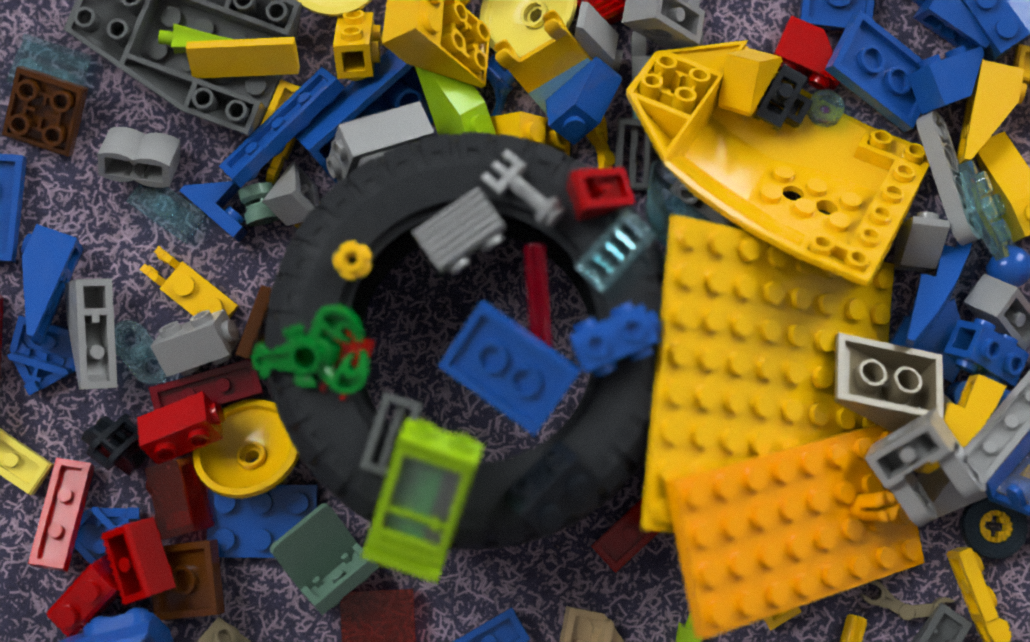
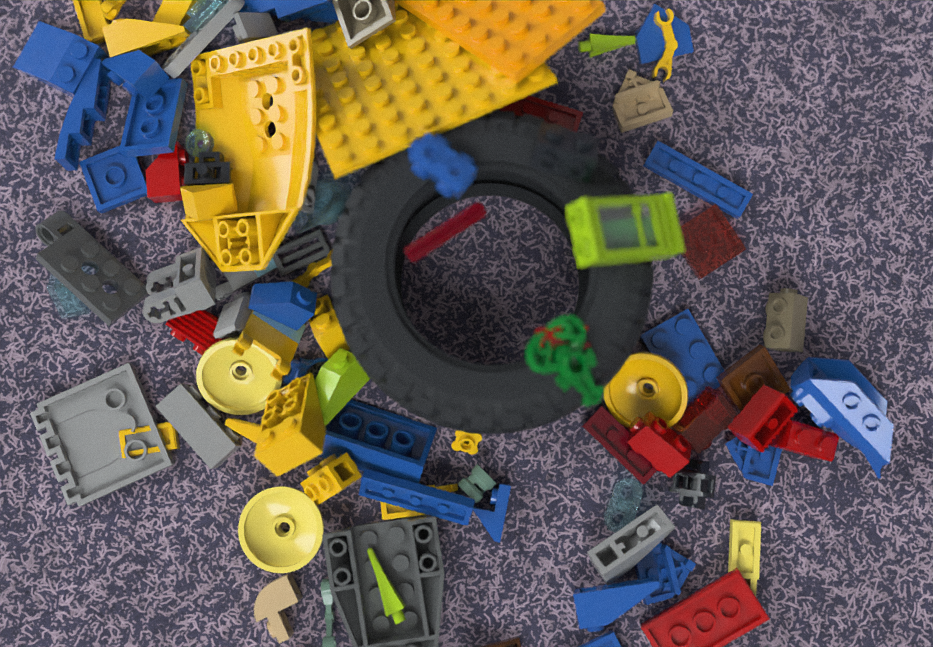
camera: 120 degrees left, 0 degrees up
(61, 514) = (761, 492): plate -> none
(139, 157) = (492, 585): light grey brick -> none
(168, 210) = (515, 547): clear light blue plate -> none
(189, 287) = (561, 495): yellow hinge -> none
(197, 342) = (596, 469): light grey brick -> none
(243, 57) = (383, 553): yellow tile -> none
(252, 334) = (551, 437): reddish brown tile -> none
(292, 195) = (459, 460): light grey slope -> none
(322, 558) = (687, 298): sand green bracket -> none
(352, 271) = (489, 381): yellow plate -> none
(373, 135) = (391, 420): light grey window -> none
(377, 427) = (566, 284): dark grey tile -> none
(460, 232) = (428, 309): light grey brick -> none
(509, 367) = (502, 223): blue plate -> none
(548, 210) = (371, 297): light grey hinge -> none
(598, 191) = (347, 232): red slope -> none
(637, 225) = (383, 190): clear light blue slope -> none

